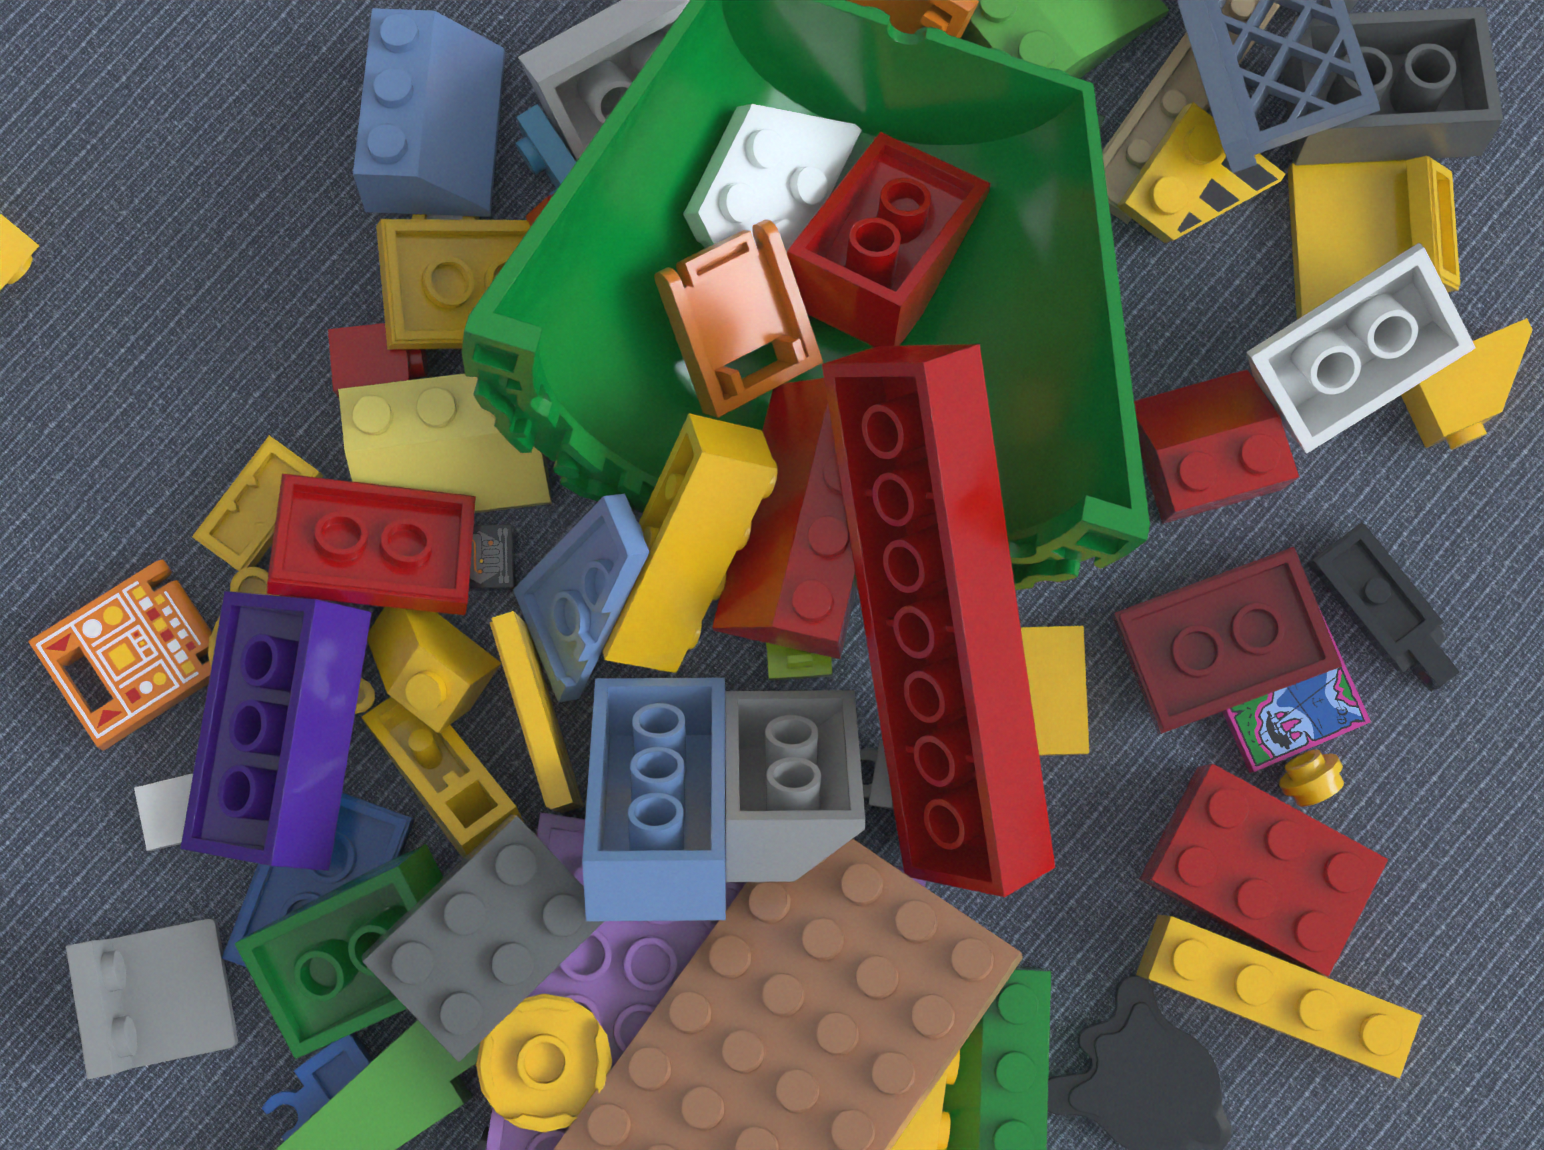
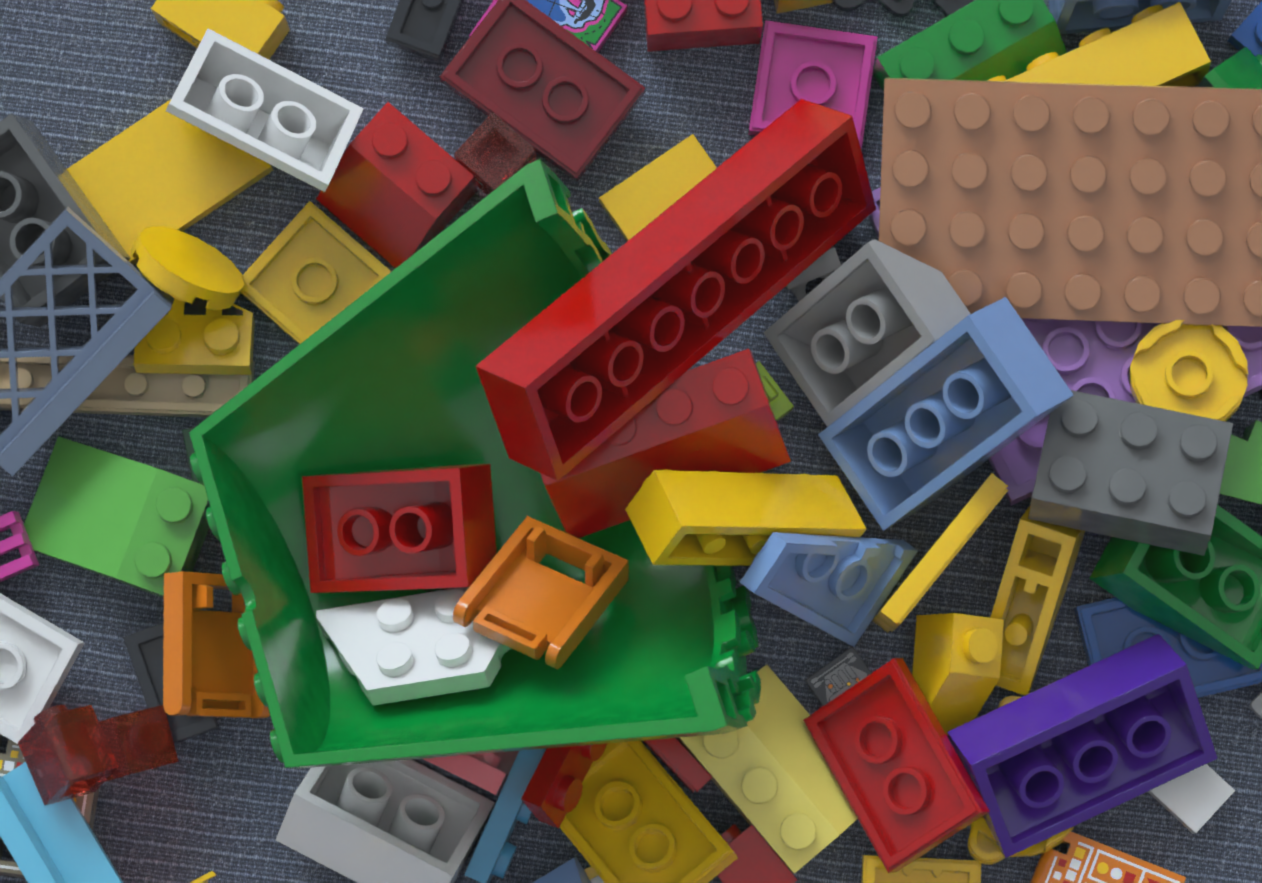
camera: 125 degrees left, 0 degrees up
(1075, 910) = (812, 66): none -> dark pink tile
(1178, 320) = (310, 274): none -> yellow tile
(1182, 548) = (494, 153): none -> clear red brick
(1253, 201) = (187, 267): none -> yellow tile
(1434, 216) = (112, 125): yellow tile -> none

